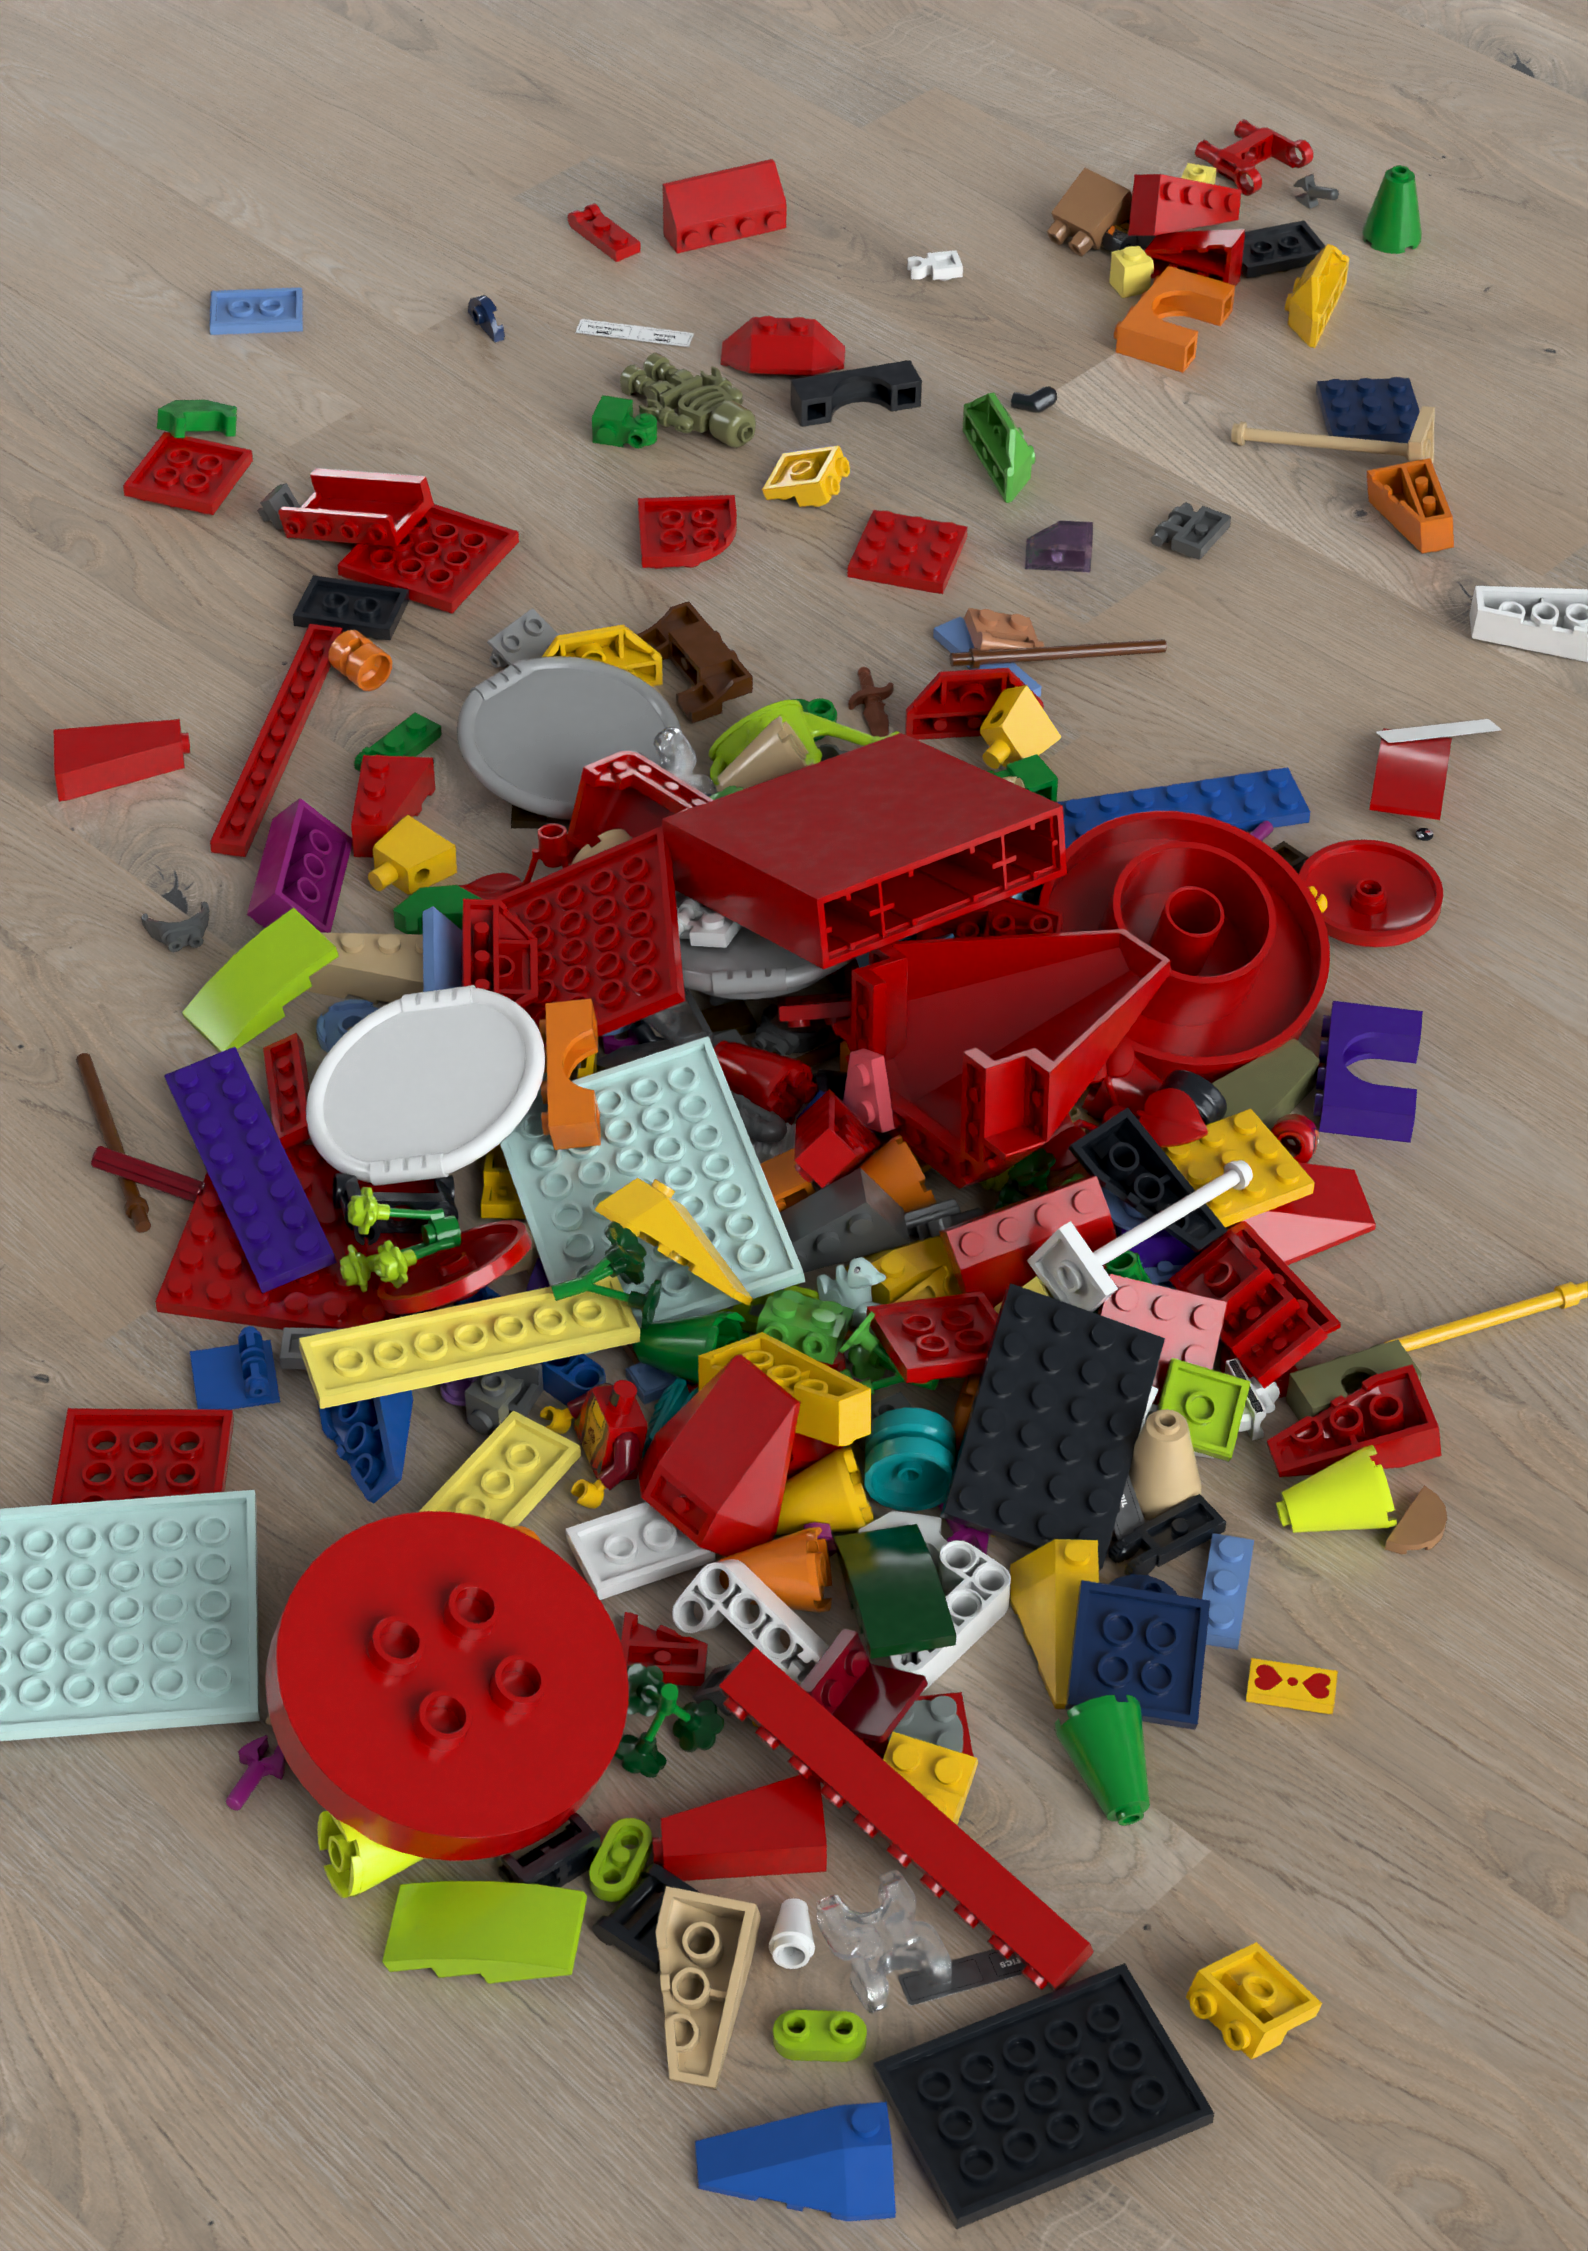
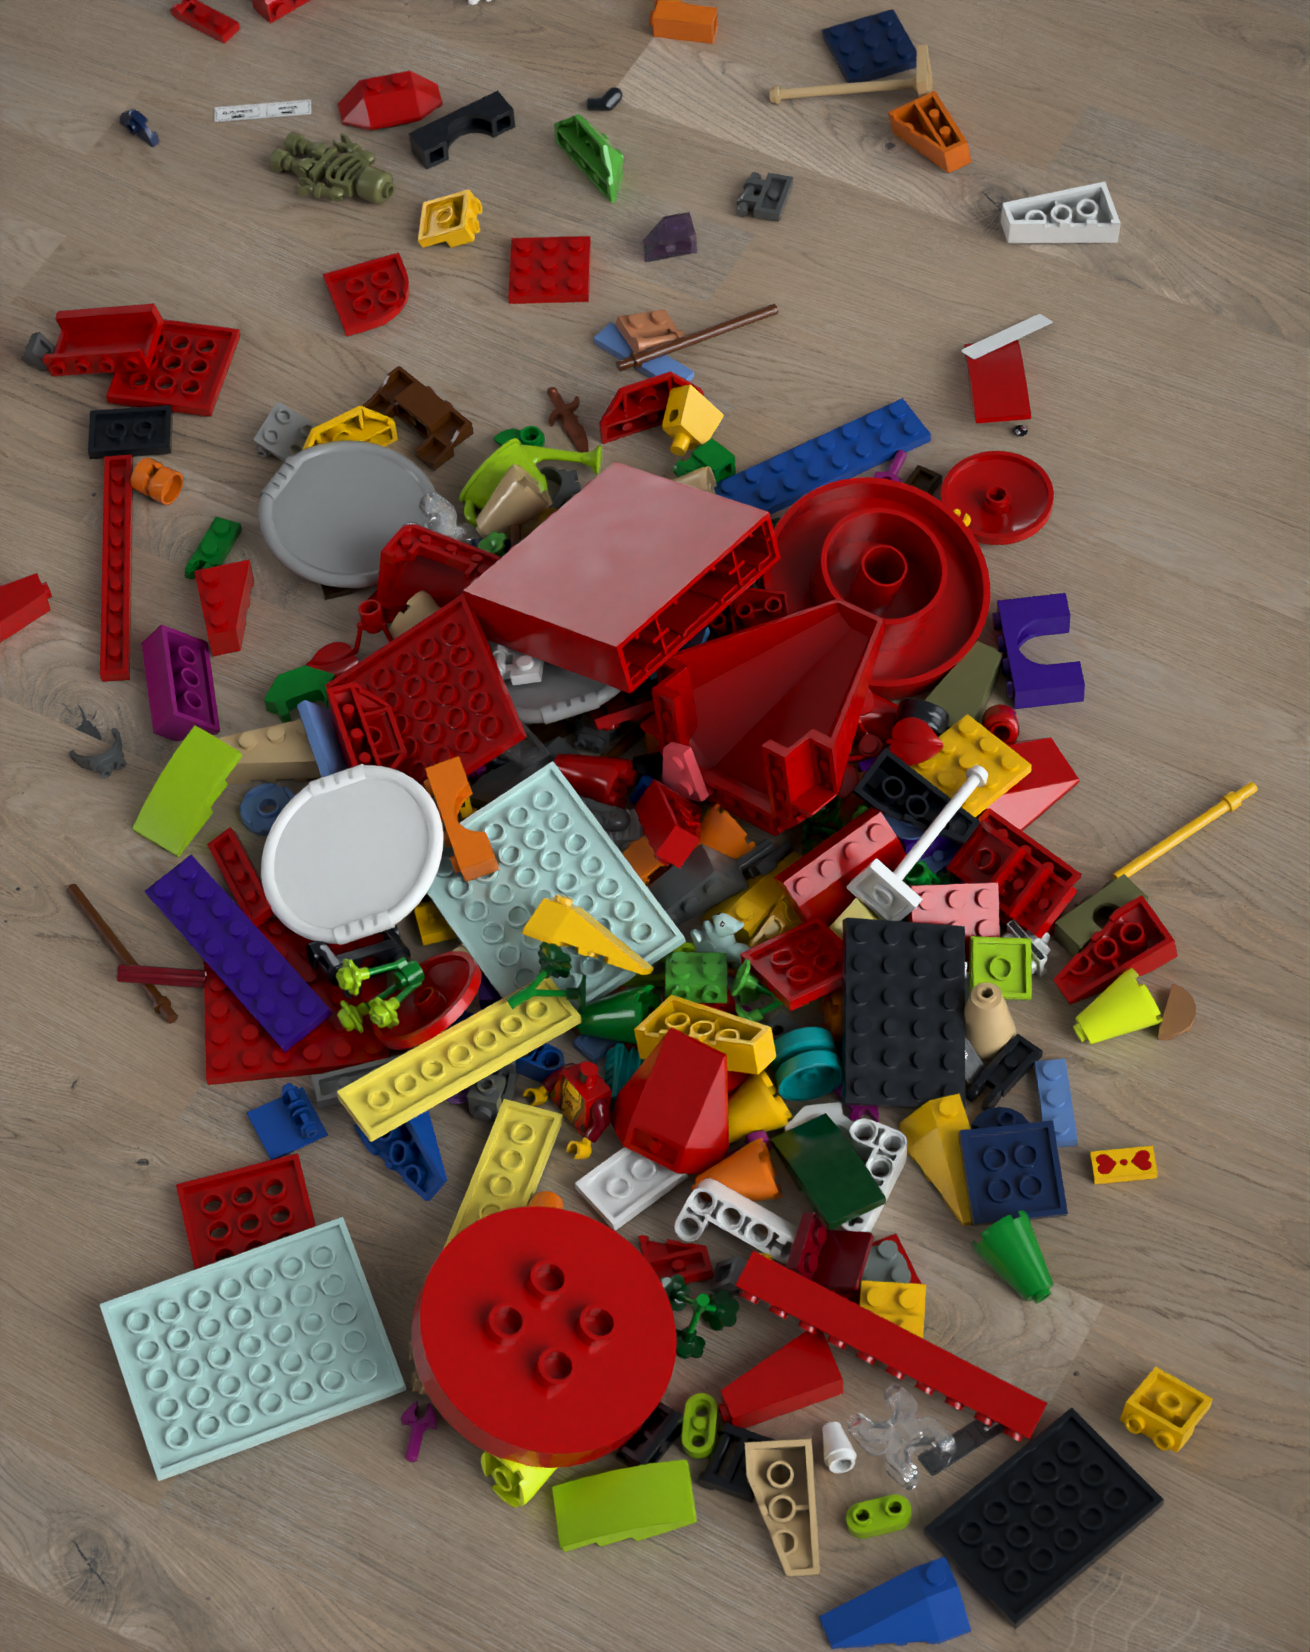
camera: 10 degrees left, 10 degrees up
(411, 858) = (261, 649): yellow torso -> none
(615, 424) = (281, 209): green brick -> none

